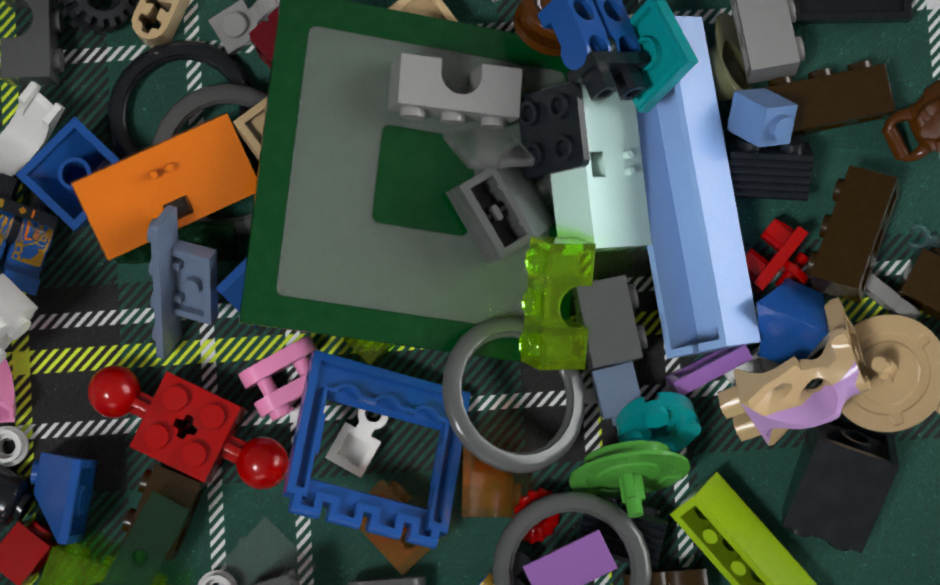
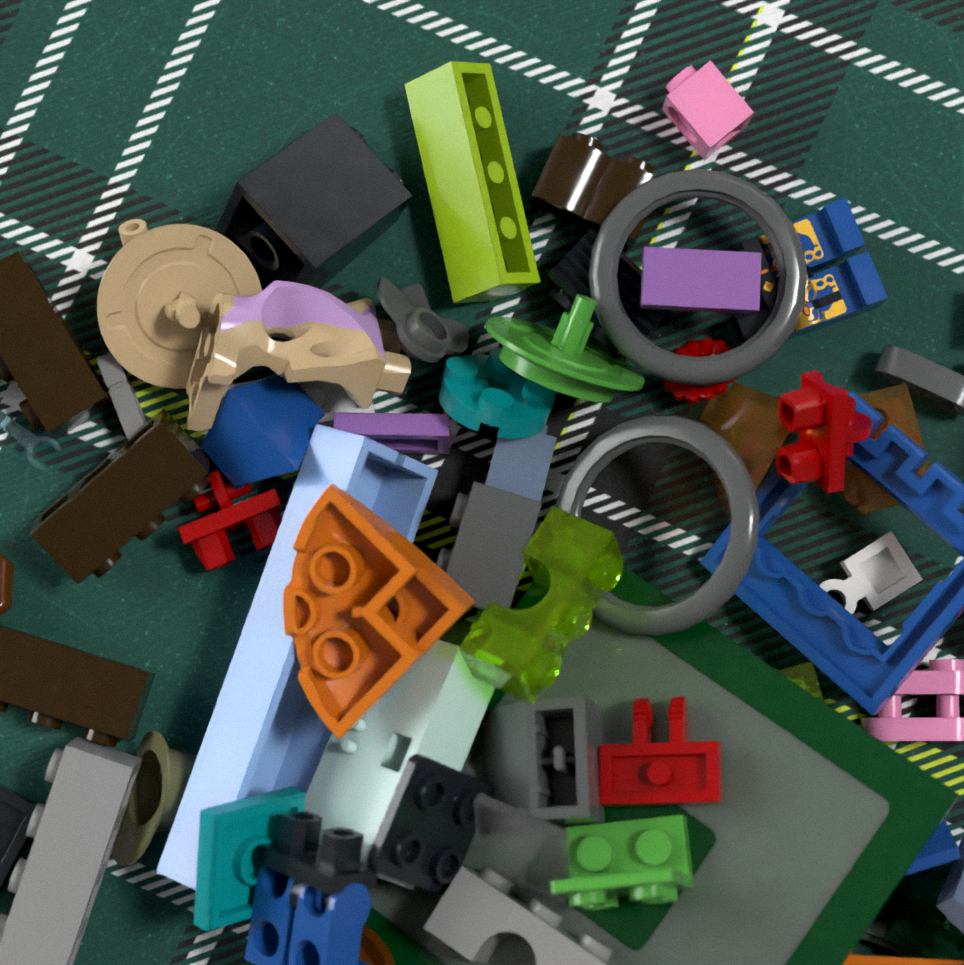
camera: 155 degrees left, 0 degrees up
(417, 178) = (627, 858): none -> bright green bracket
(426, 241) = (661, 772): none -> red hinge
(438, 511) = (826, 432): none -> red hips
(669, 239) = (361, 607): none -> orange brick
(731, 443) = (418, 328): none -> dark grey plate
(762, 117) = (154, 701): medium blue brick -> none
(770, 171) = (177, 636): black brick -> none

